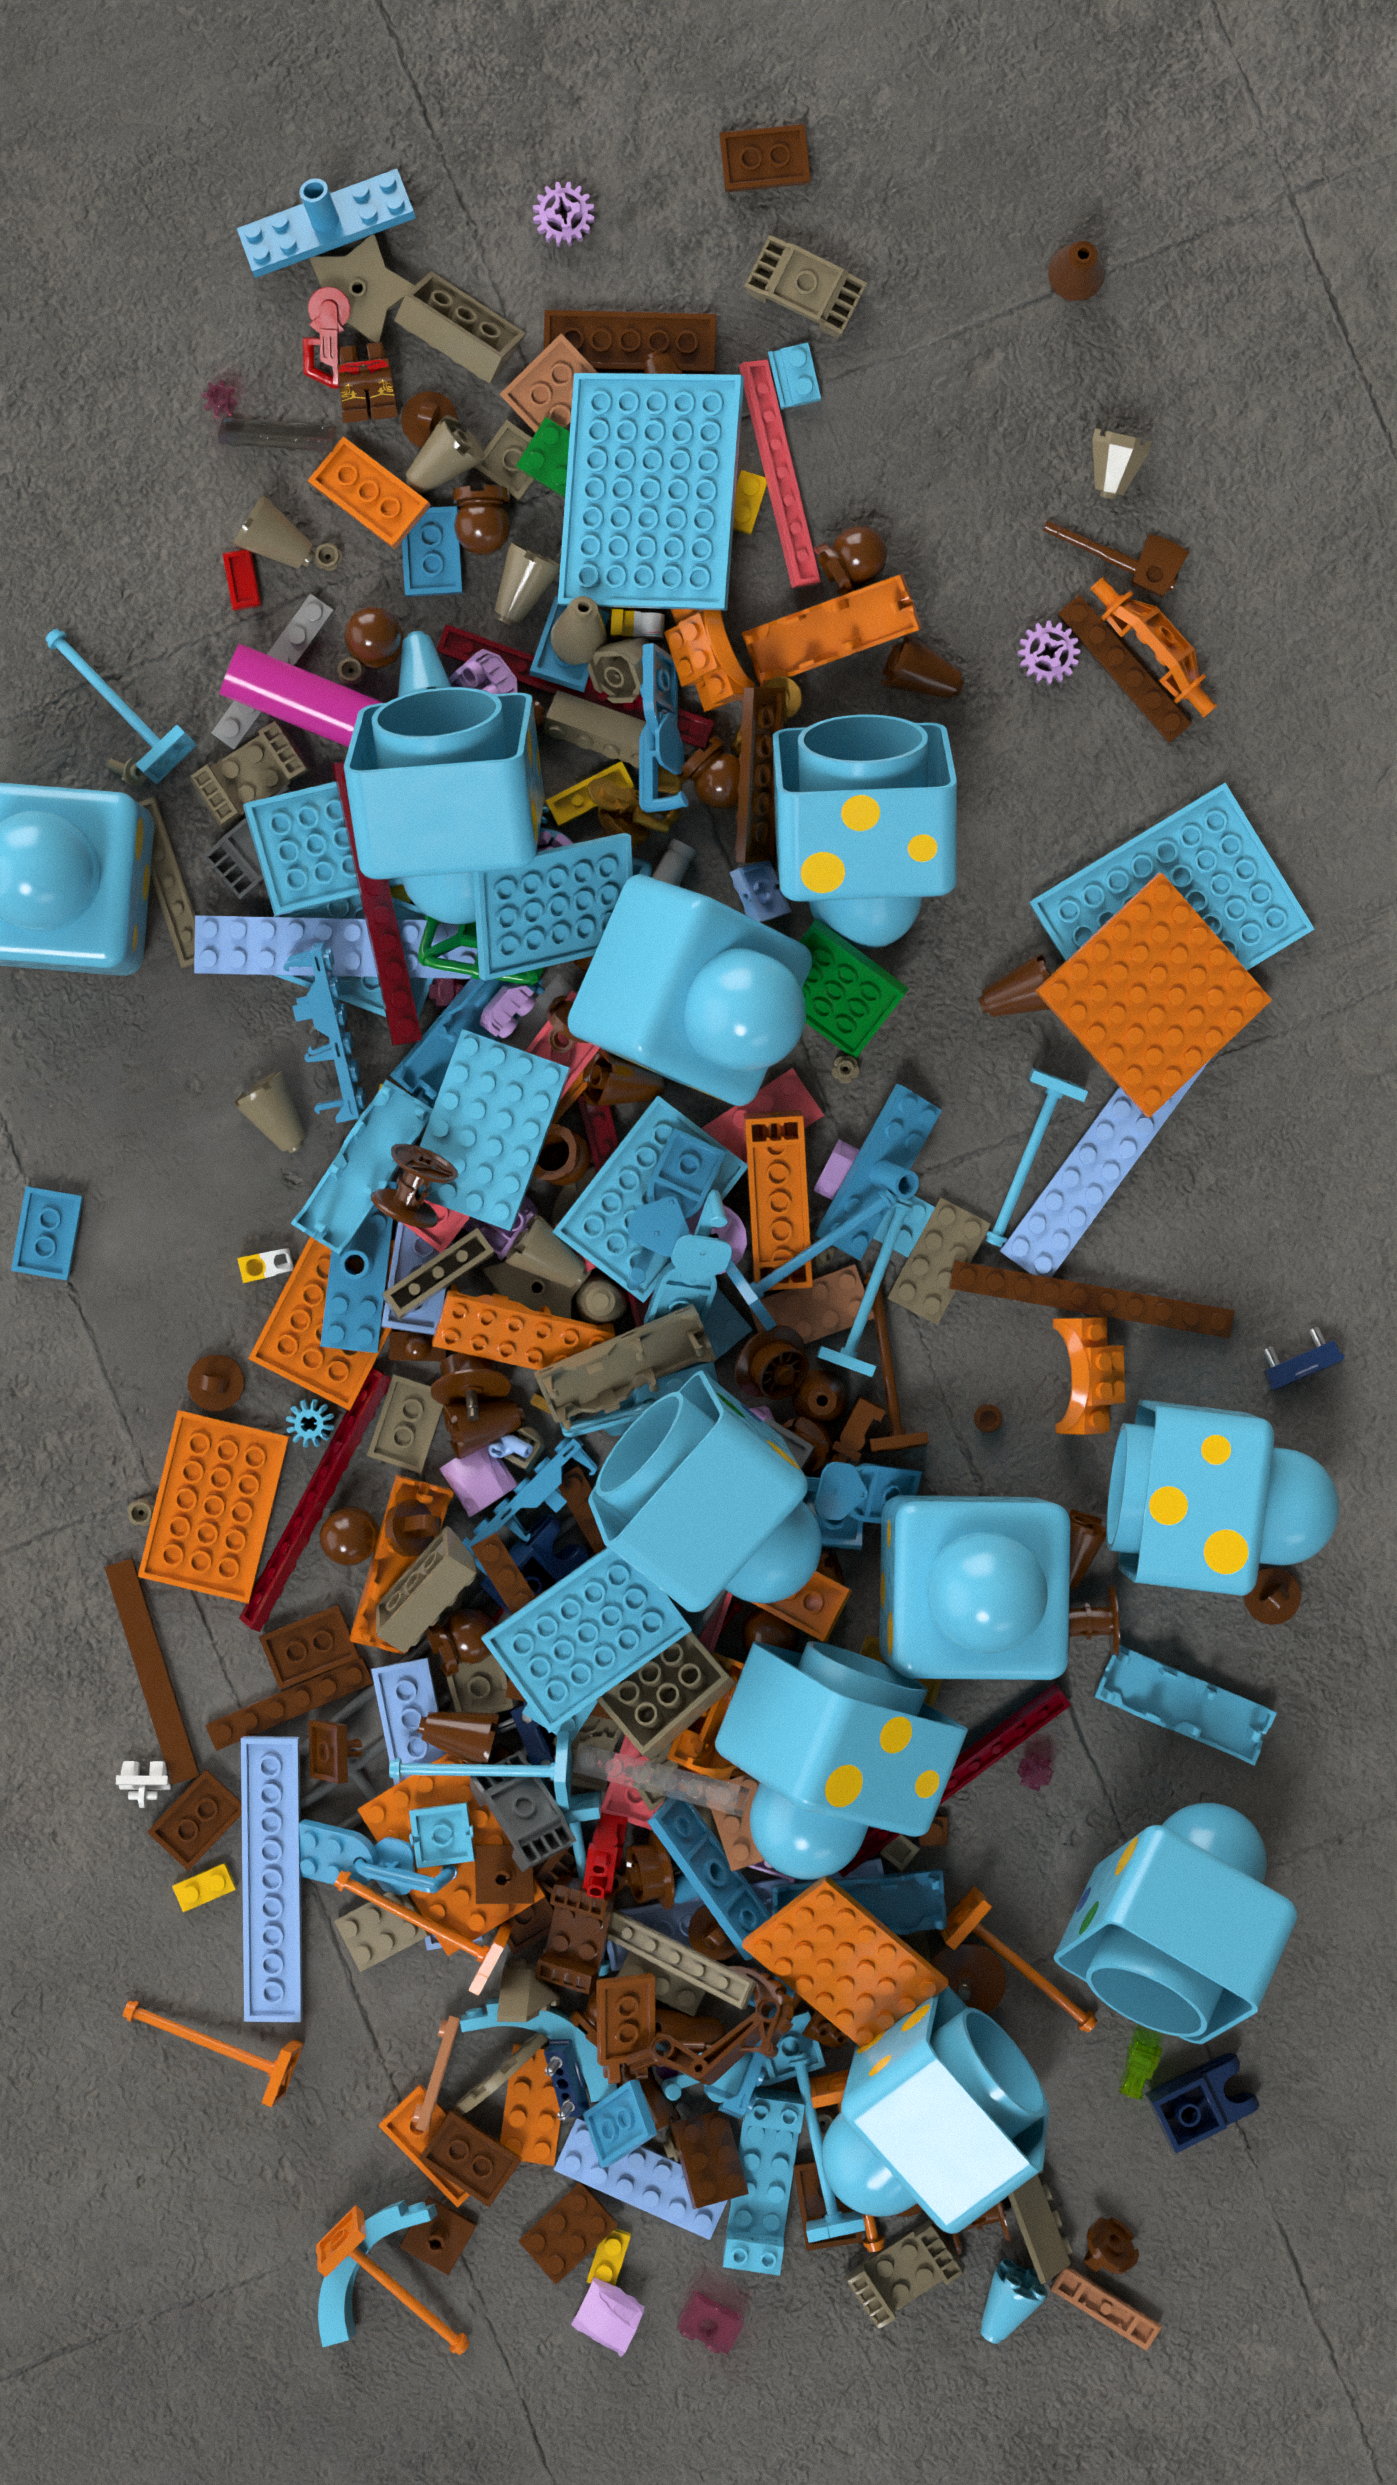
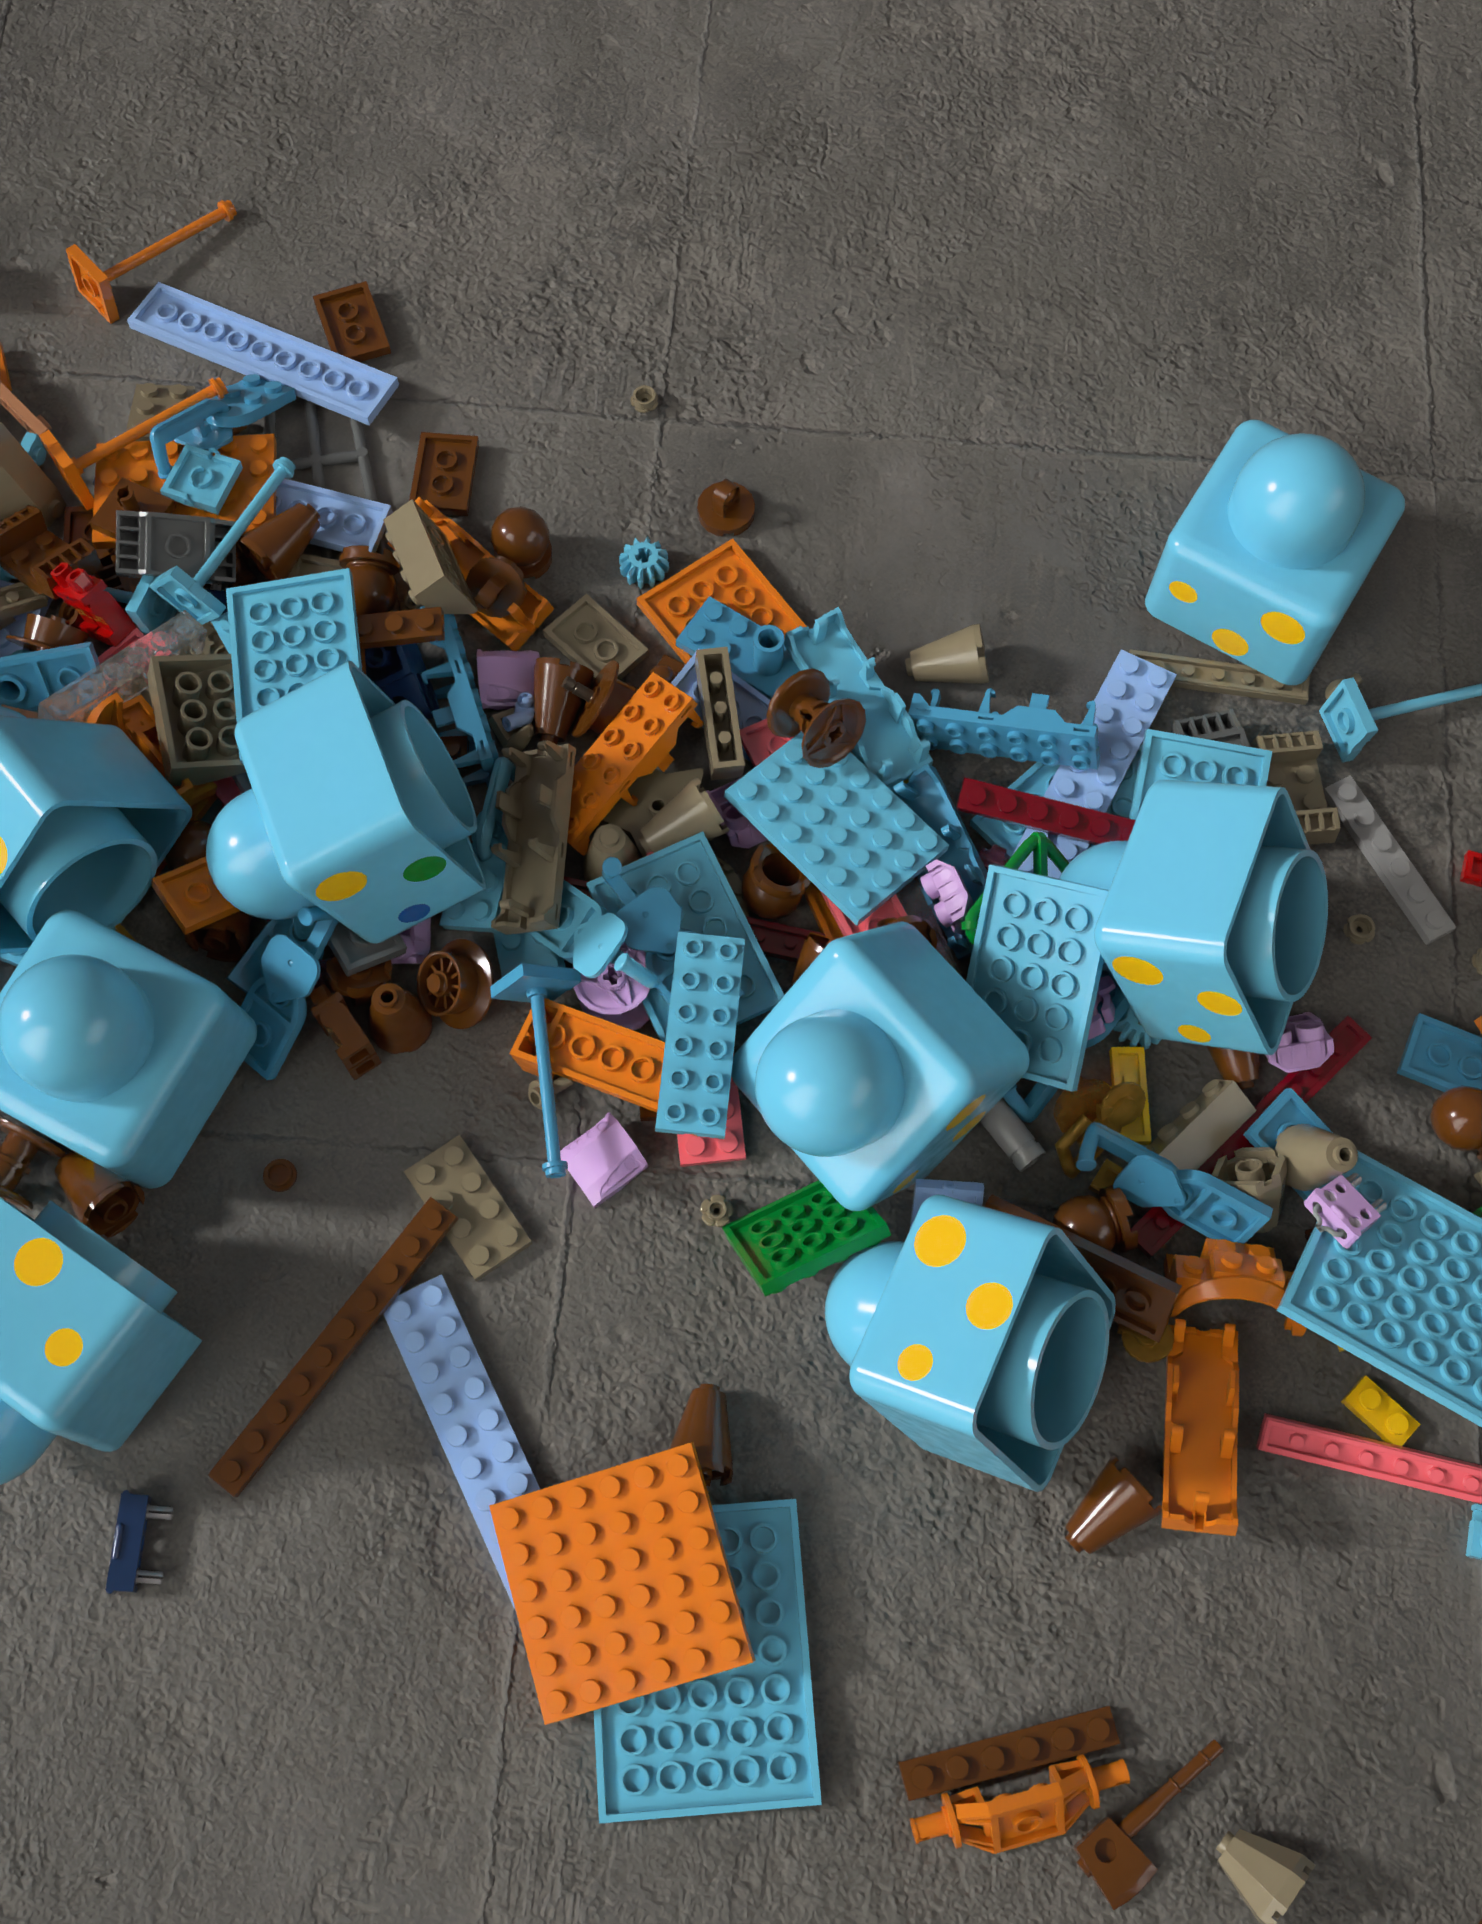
camera: 115 degrees right, 20 degrees down
(47, 1233) = (936, 435): dark azure plate -> none
(130, 1780) = (418, 290): white hips -> none
(152, 1671) = (501, 349): reddish brown tile -> none
(204, 1887) = (292, 307): yellow plate -> none
(213, 1506) = (616, 456): orange plate -> none
(265, 1265) = (811, 589): leg -> none
(289, 1703) = (405, 434): reddish brown plate -> none
(293, 695) = (1374, 843): dark pink piece -> none
(314, 1500) = (578, 543): dark red plate -> none
(330, 1751) = (339, 439): reddish brown tile -> none
(374, 637) = (1387, 961): reddish brown tile -> none
(420, 665) = (1337, 993): medium azure cone -> none
(523, 582) = (1386, 1131): dark tan cone -> none
(622, 591) = (1343, 1209): none -> lavender piece
(637, 624) = (1292, 1227): leg -> none
(738, 1136) = (700, 1035): none -> medium azure piece
(819, 1309) = (484, 1072): nougat plate -> none
(848, 1355) = (419, 1058): medium azure tile -> none
(854, 557) = (1272, 1496): reddish brown tile -> none
(880, 1166) = (595, 1193): dark azure plate -> none
(897, 1437) = (310, 1068): reddish brown tile -> none
(911, 1227) = (527, 1191): medium azure plate -> none
(1054, 664) = (1068, 1687): lavender gear -> none
(1055, 1089) = (578, 1419): medium azure tile -> none
(1095, 1375) = (256, 1299): orange piece -> none

